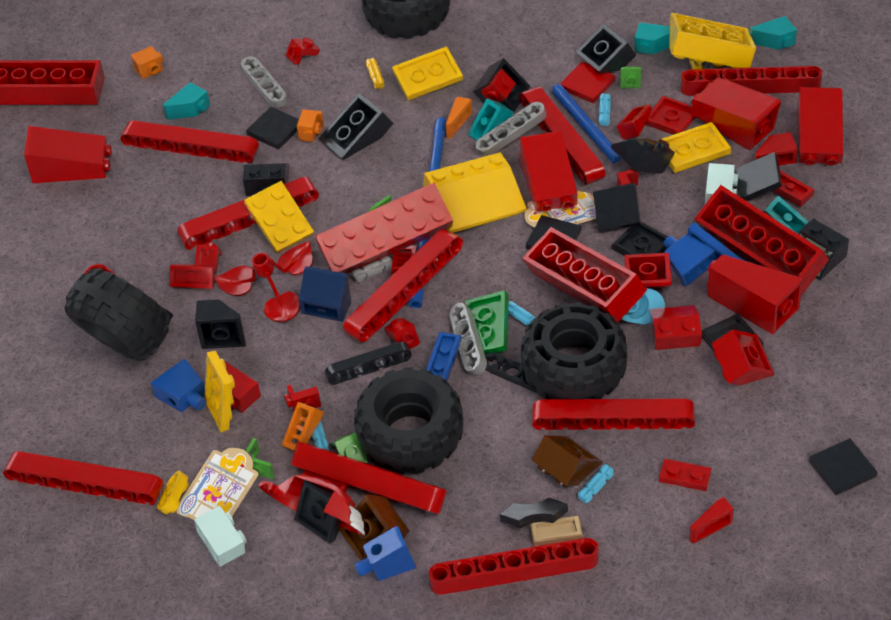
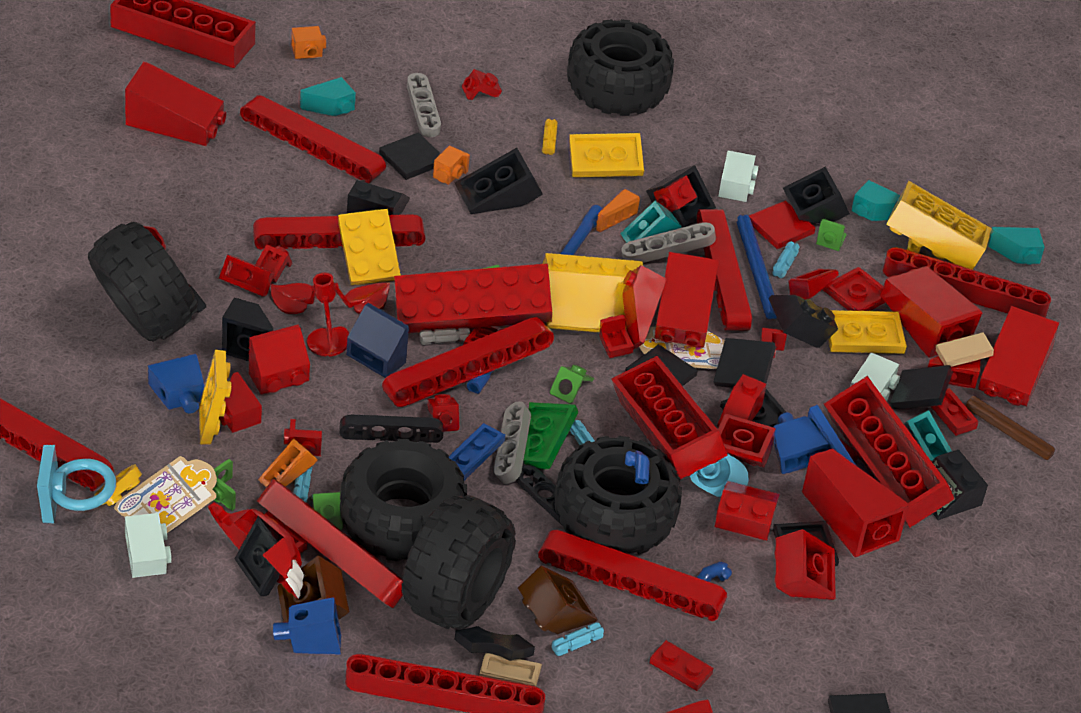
camera: 10 degrees right, 5 degrees down
(122, 512) = (52, 484): none -> medium azure tile
(253, 339) = (278, 359): none -> red slope
(482, 458) = (458, 562): none -> black tyre
(488, 264) = (576, 375): none -> bright green bracket
(506, 222) = (615, 336): none -> red bracket
(514, 185) = (640, 301): none -> red slope
(536, 54) = (737, 176): none -> light aqua brick
(586, 322) = (640, 463): none -> blue arm
(632, 238) = (745, 399): none -> red slope
(672, 387) = (718, 569): none -> blue arm
(779, 135) = (964, 350): none -> tan tile
(838, 185) = (1010, 428): none -> reddish brown axle

